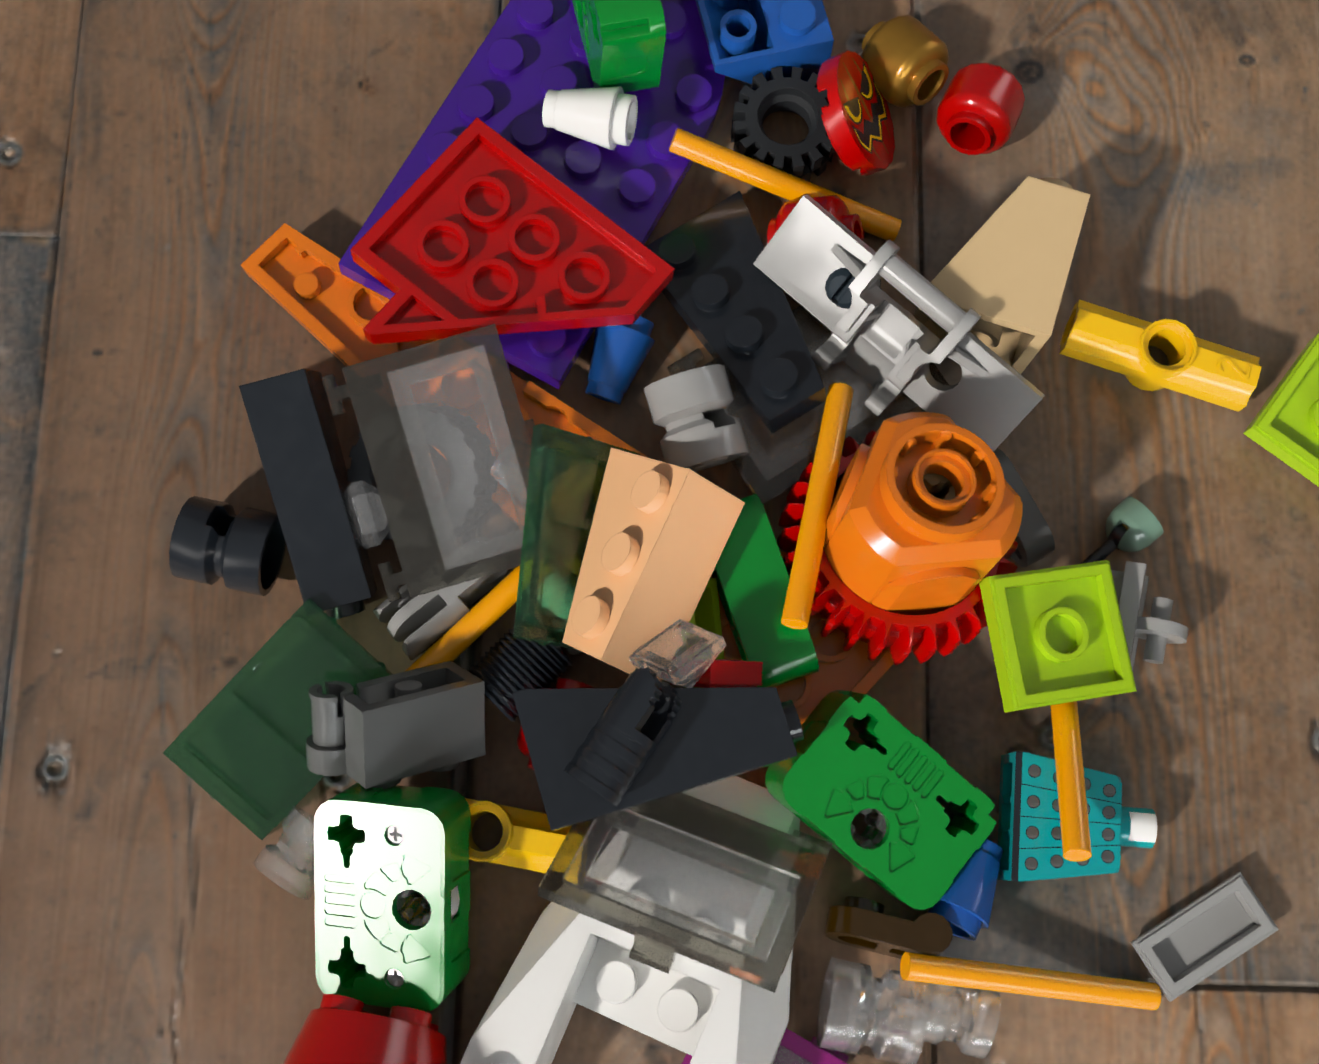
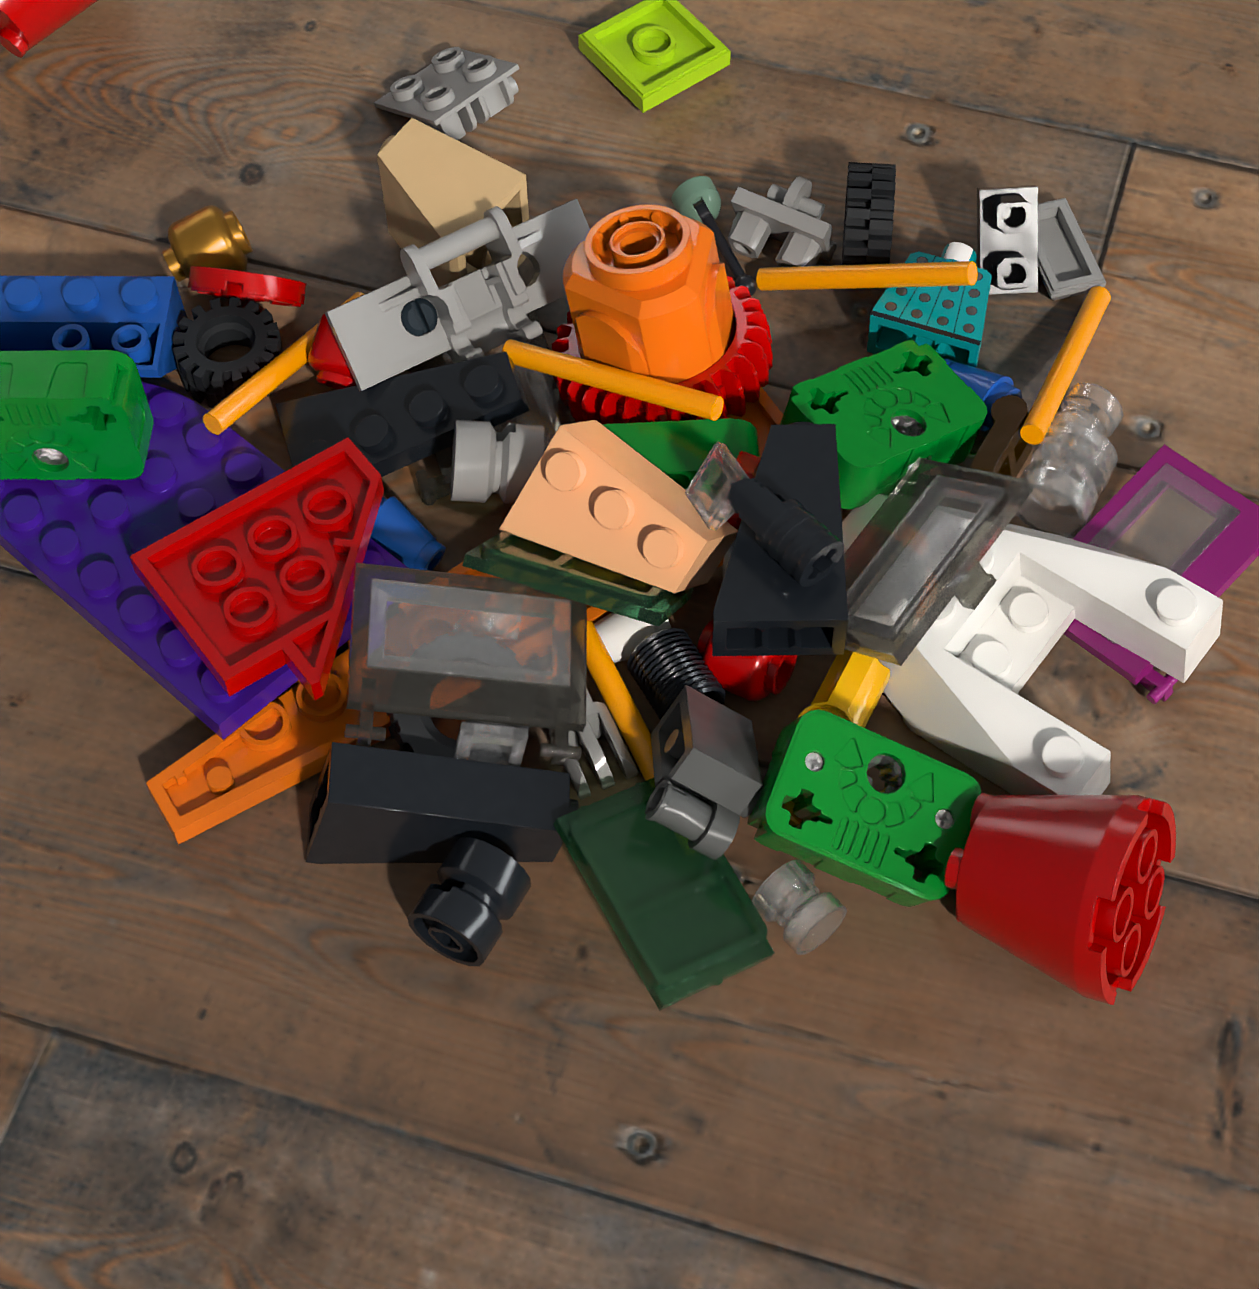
camera: 70 degrees left, 20 degrees down
(592, 114) = (164, 472): white cone -> none
(980, 108) = (279, 204): red head -> none
(1056, 635) = (783, 251): lime plate -> none
(1158, 714) = (868, 213): none -> black tyre
(1178, 880) = (1008, 238): none -> hips
(1194, 368) = (564, 132): yellow piece -> none
(1197, 222) = (454, 91): none -> light grey hinge

